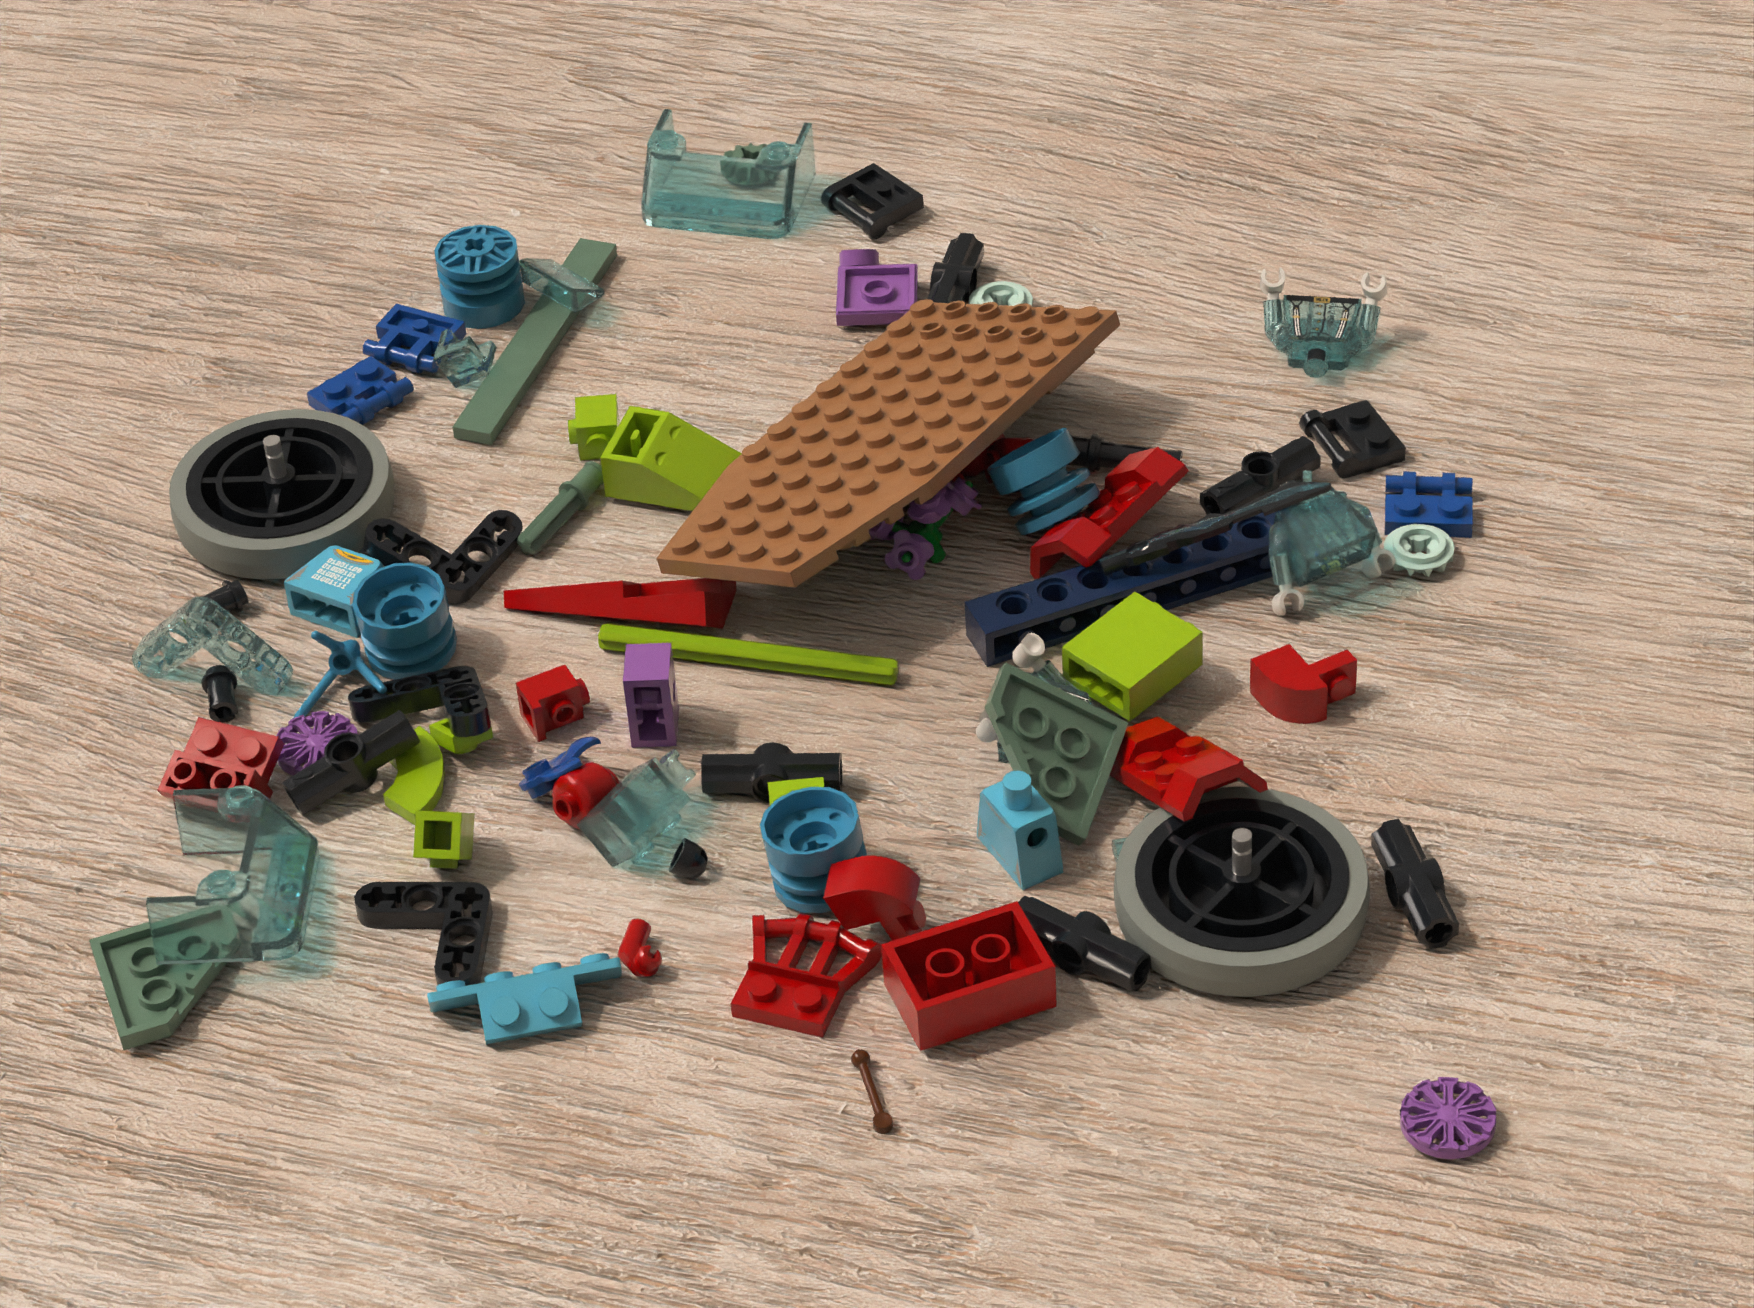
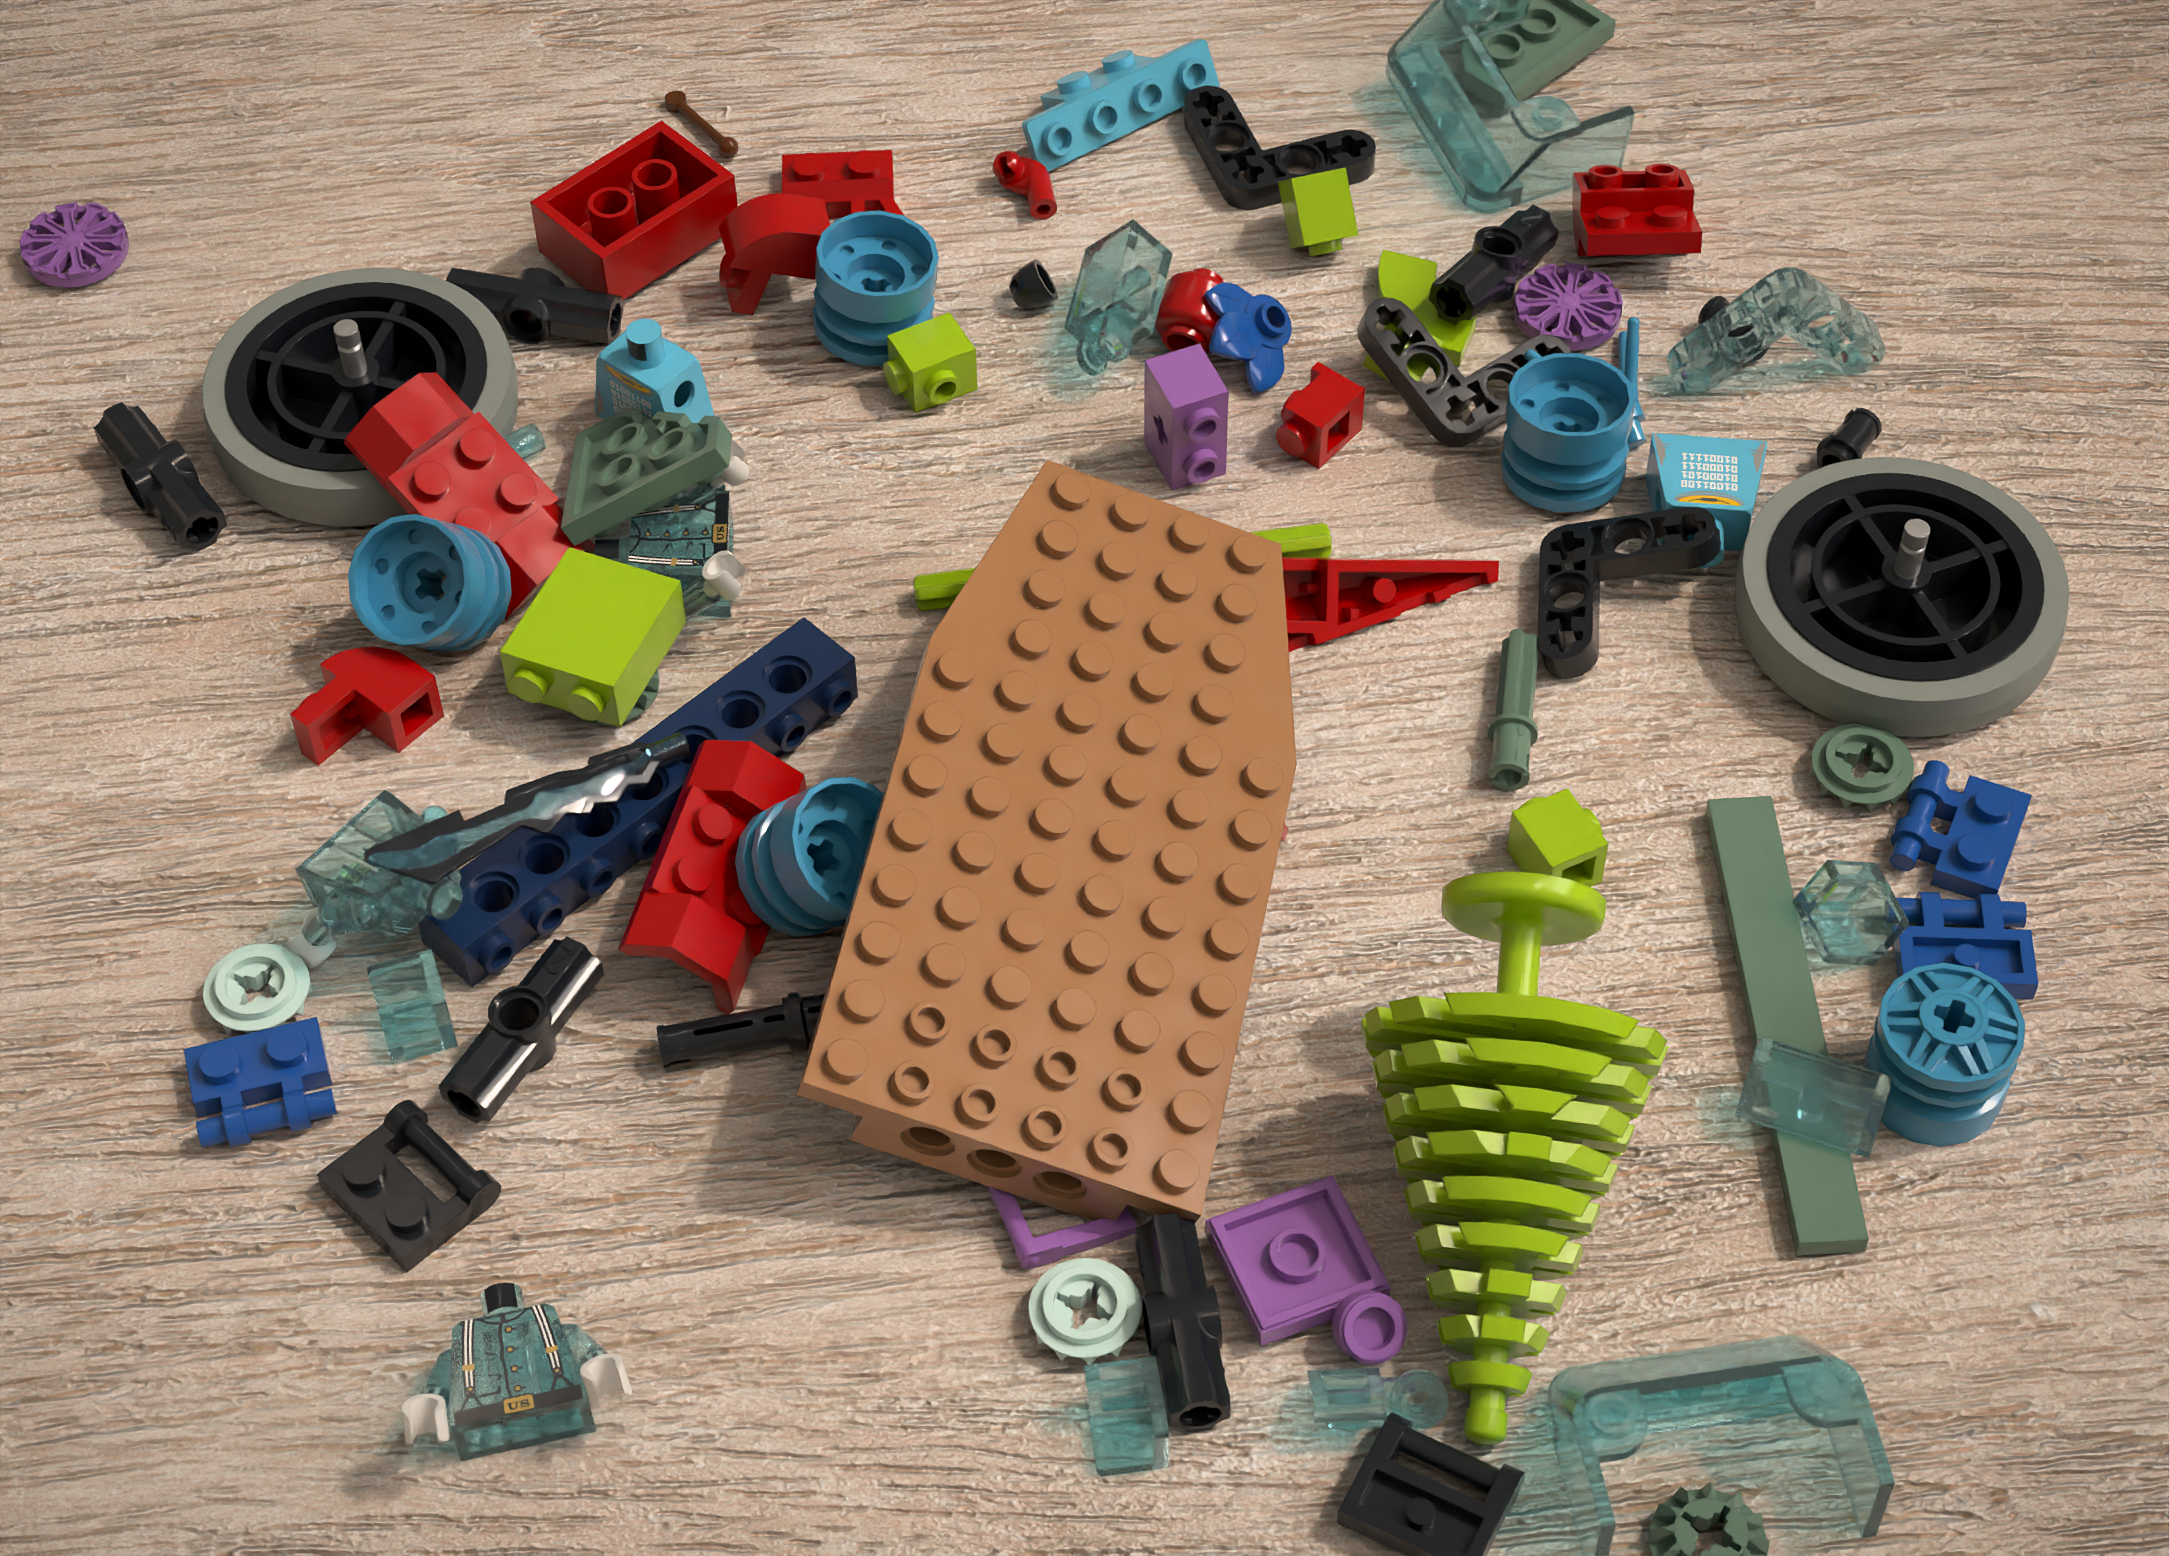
camera: 155 degrees right, 10 degrees up
(397, 428) = (1845, 746): none -> sand green gear
(662, 460) = (1398, 798): lime slope -> none
(727, 273) = (1507, 1127): none -> lime plant
(768, 764) = (993, 405): black piece -> none
(886, 234) = (1355, 1396): none -> clear light blue plate
(1001, 258) = (1126, 1416): none -> clear light blue panel
(1232, 705) = (399, 584): none -> dark azure wheel

